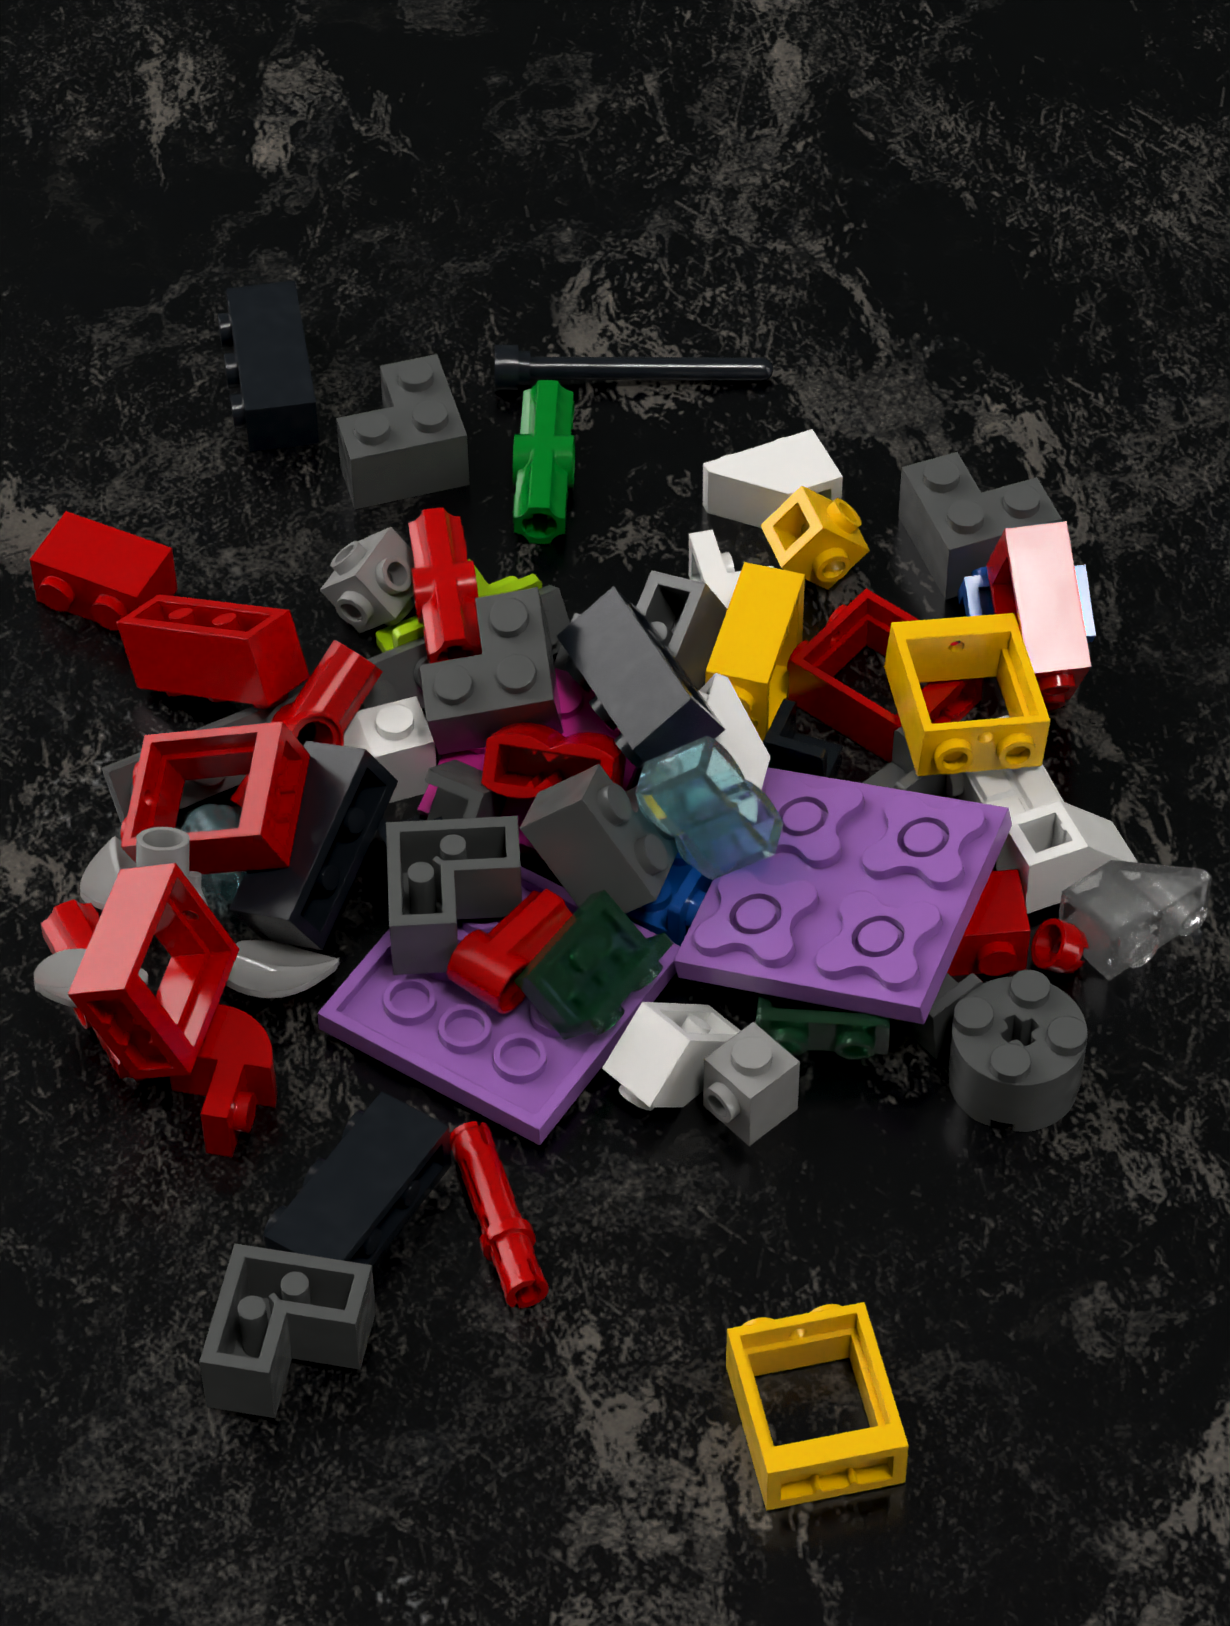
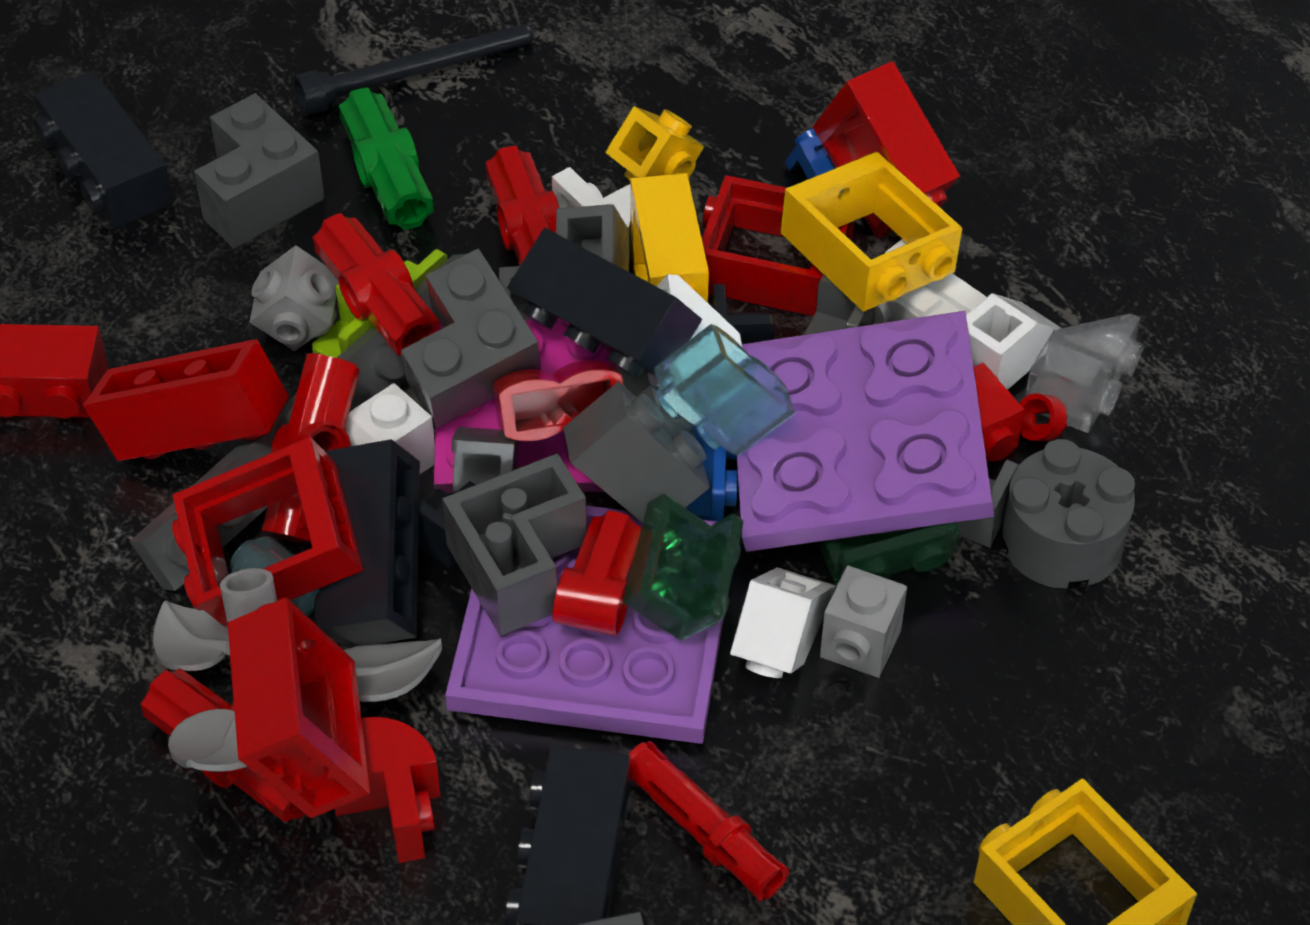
camera: 25 degrees left, 0 degrees up
(655, 541) = (520, 199): none -> red piece
(762, 478) = (587, 116): white slope -> none
(958, 524) = (768, 107): dark grey brick -> none

